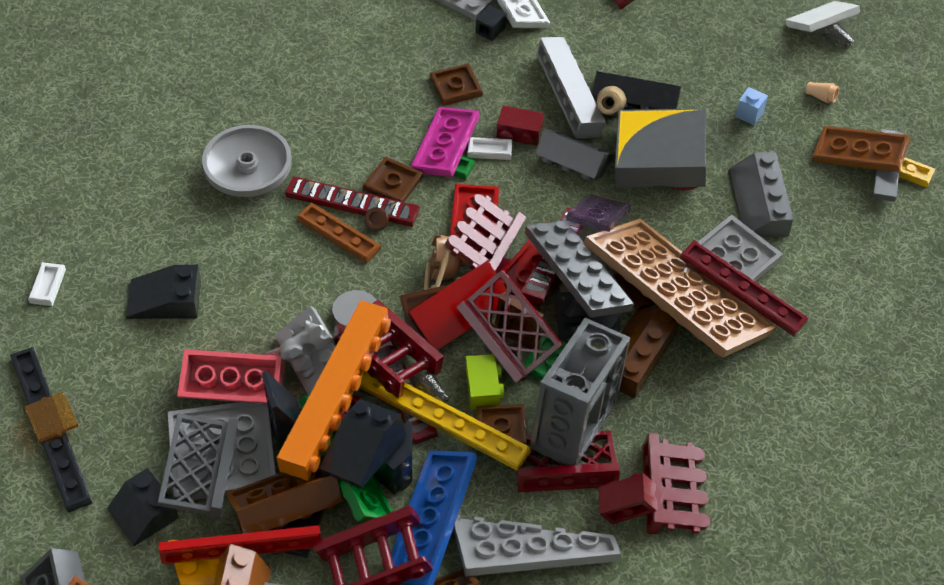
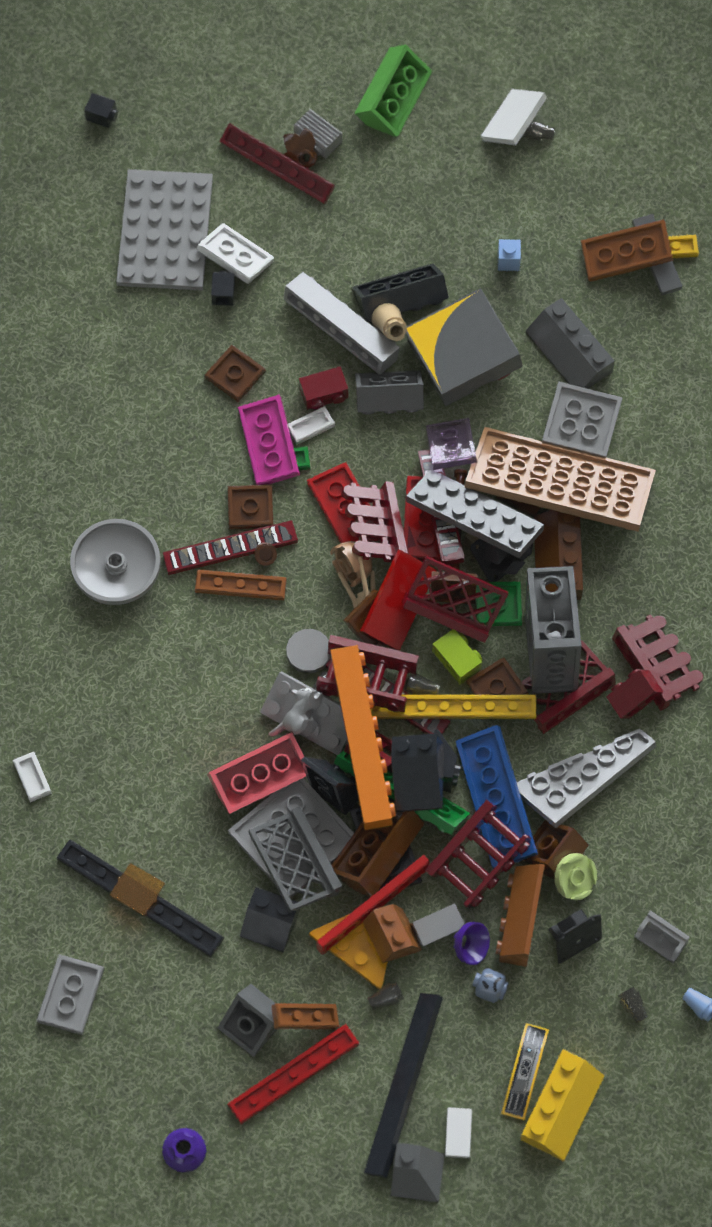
camera: 30 degrees left, 15 degrees up
(165, 294) = (141, 728): black slope -> none
(744, 288) = (610, 449): dark red tile -> none
(823, 91) = (560, 202): light nougat cone -> none

